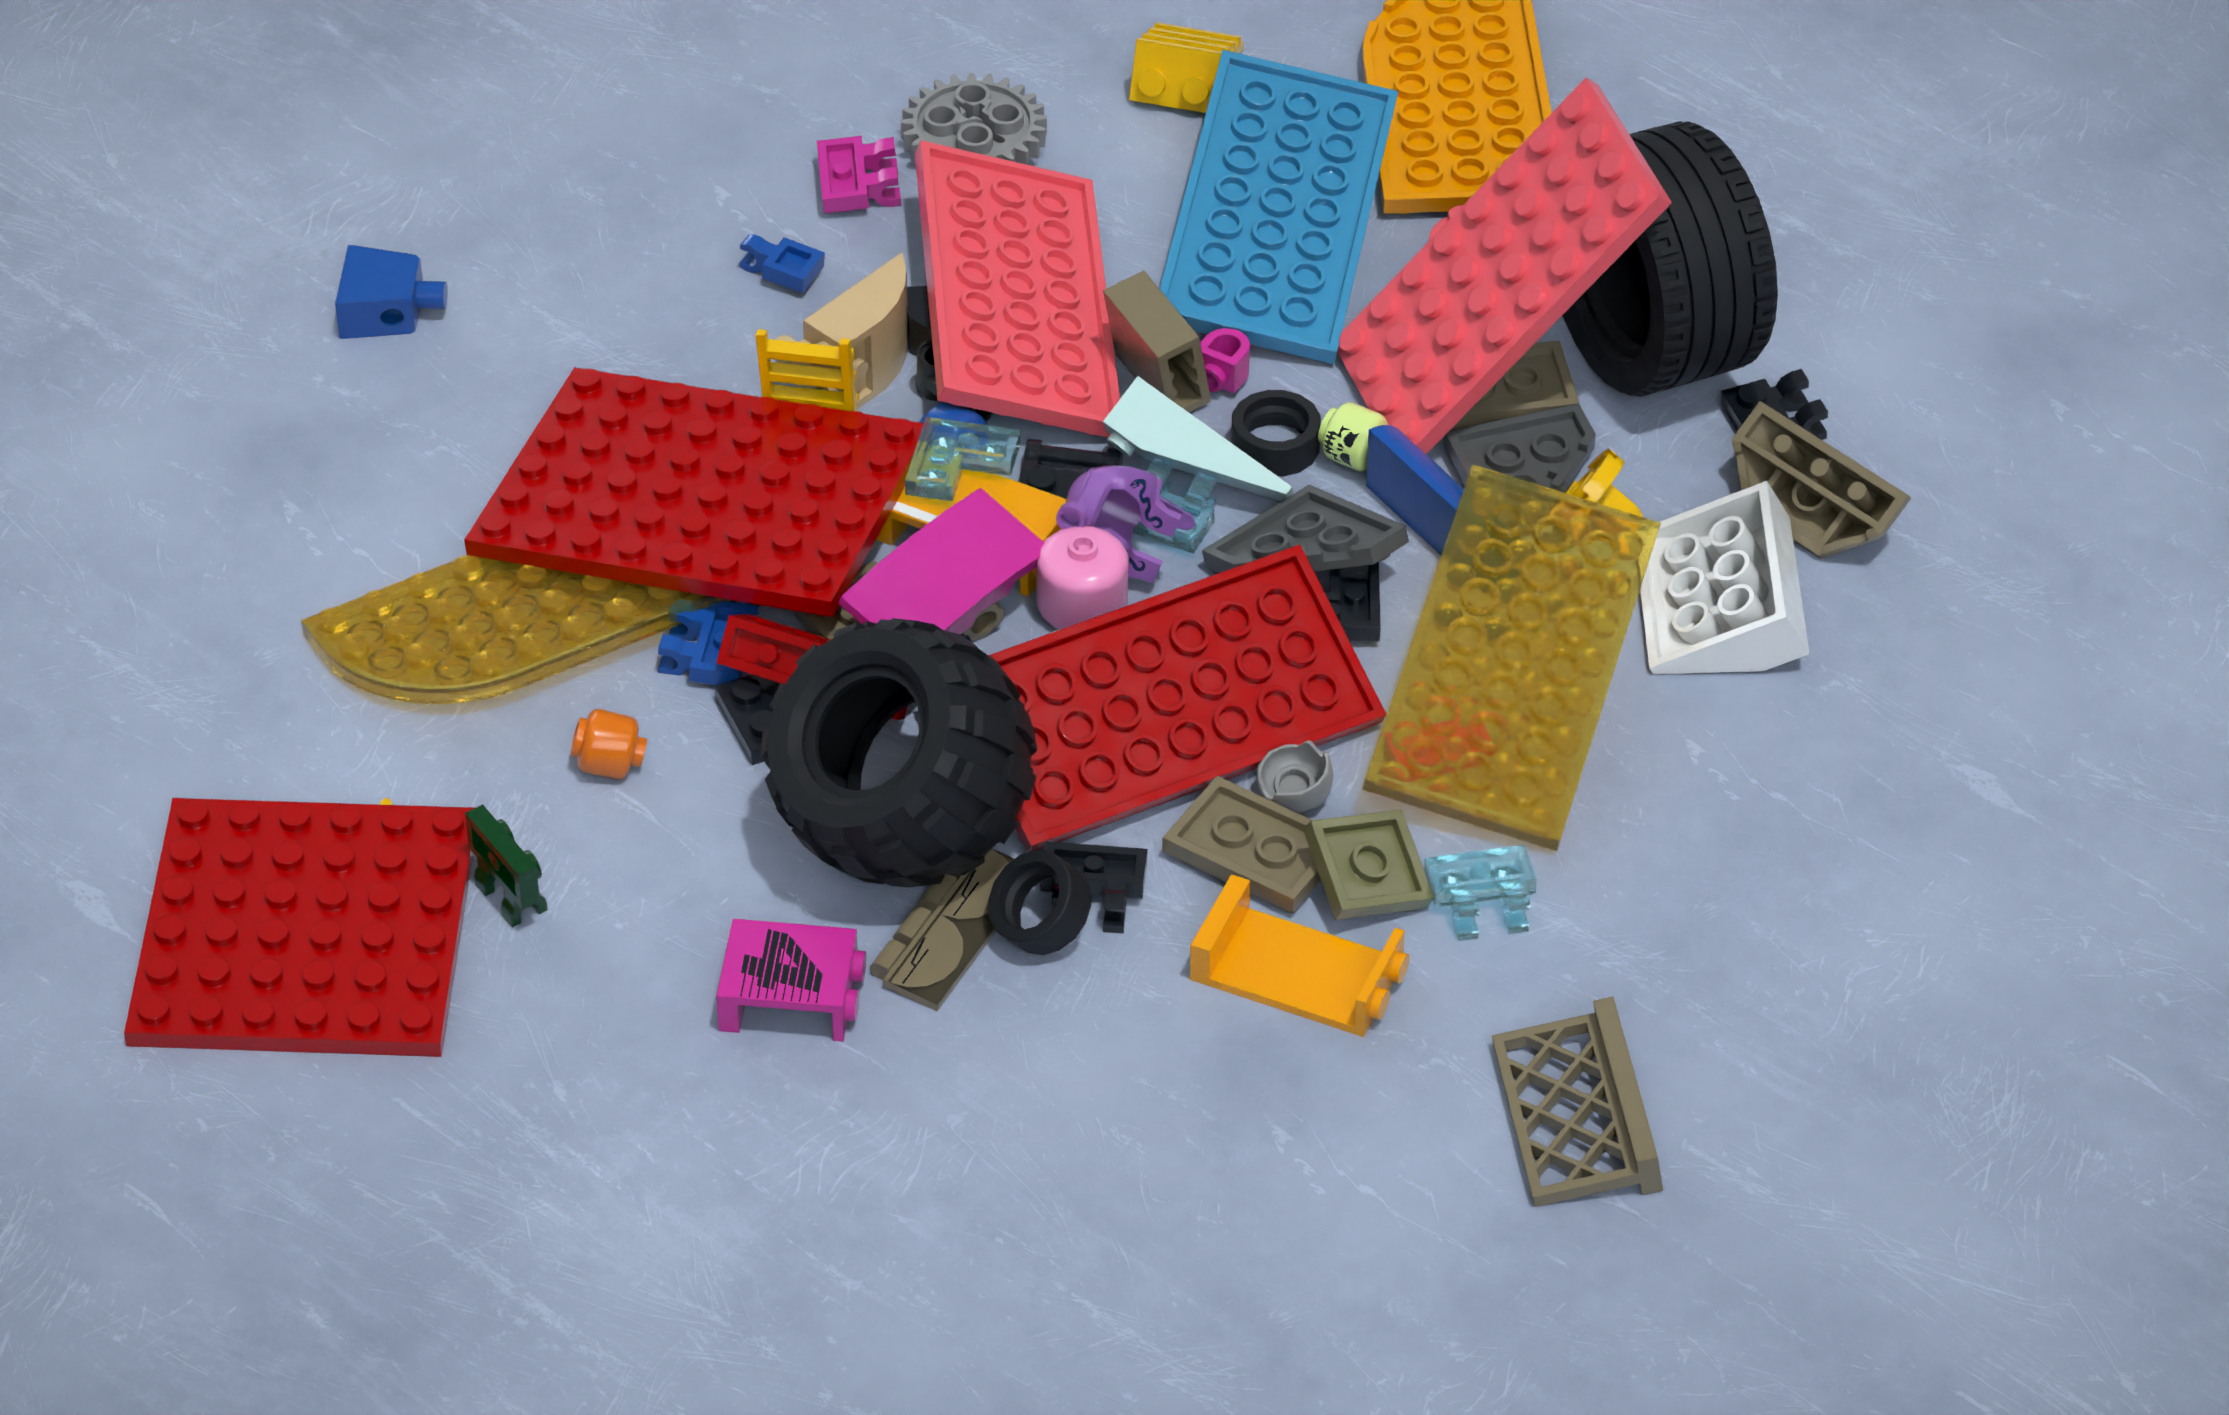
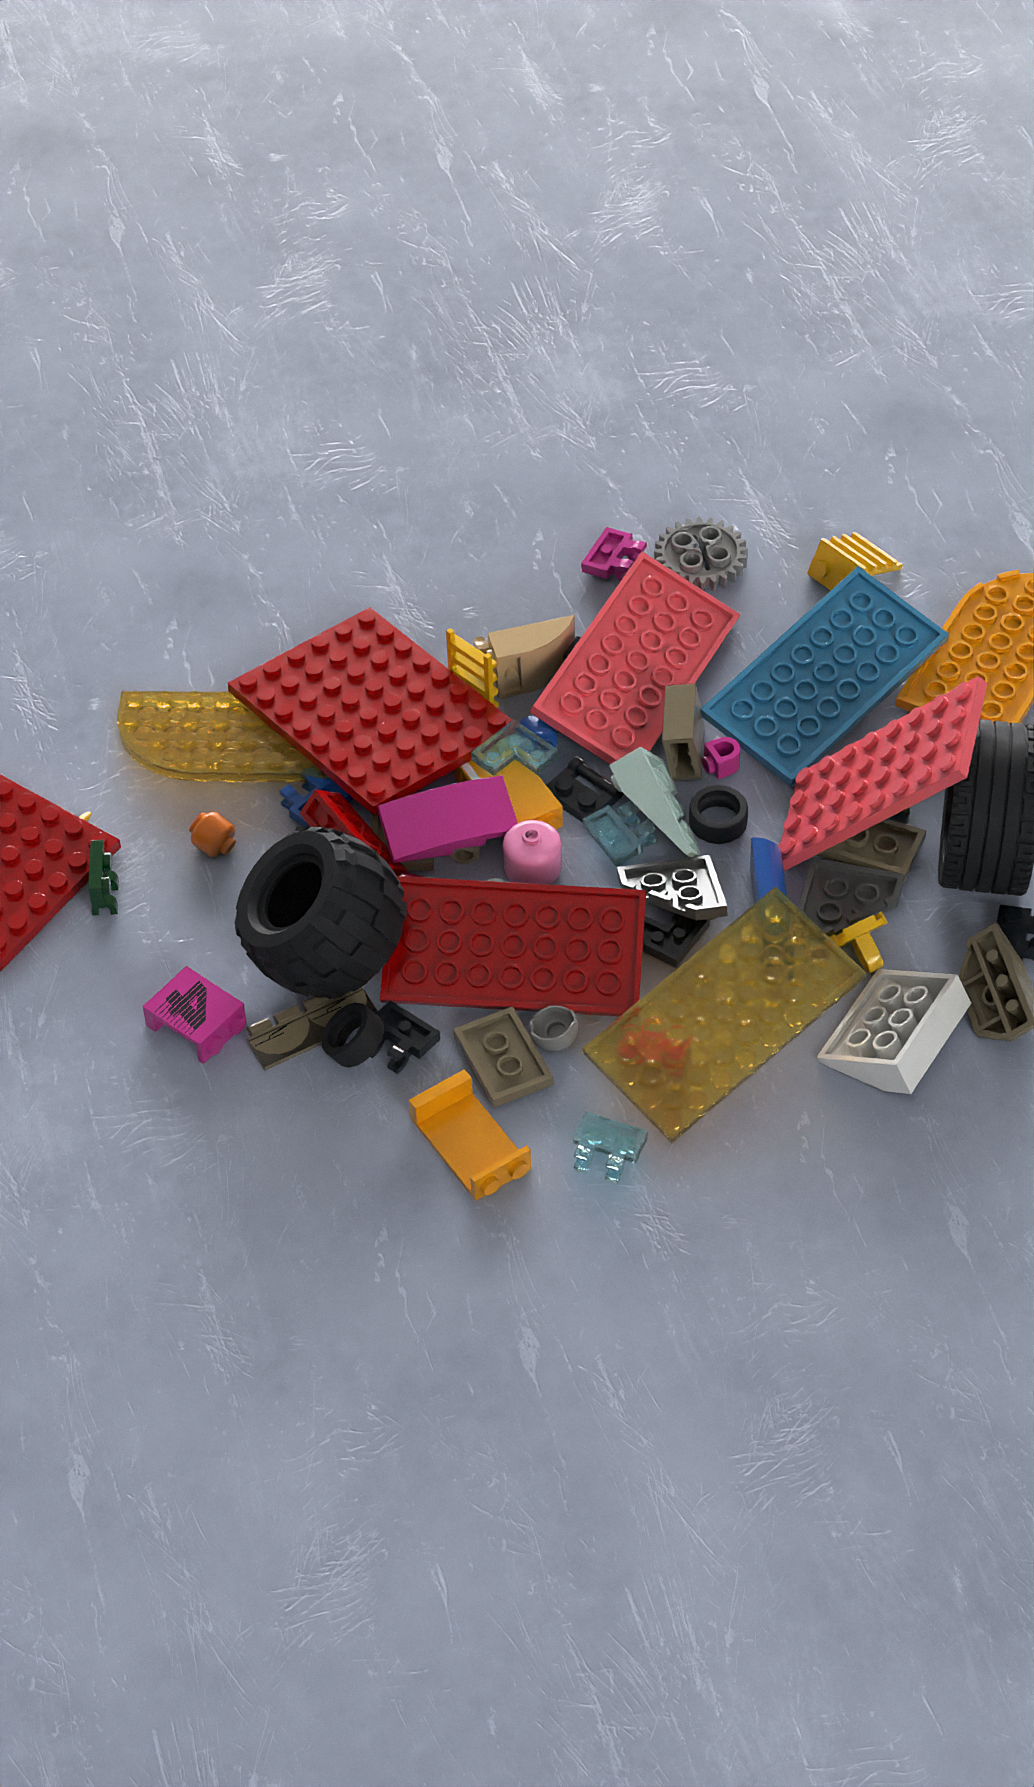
camera: 35 degrees right, 5 degrees up
(383, 293) = (308, 520): blue torso -> none
(784, 264) = (533, 594): blue plate -> none
(1116, 501) = (577, 821): medium lavender piece -> none
(1346, 434) = (754, 826): yellowish green head -> none
(1368, 864) = (548, 1100): olive plate -> none
(1618, 1086) = (579, 1306): dark tan fence -> none

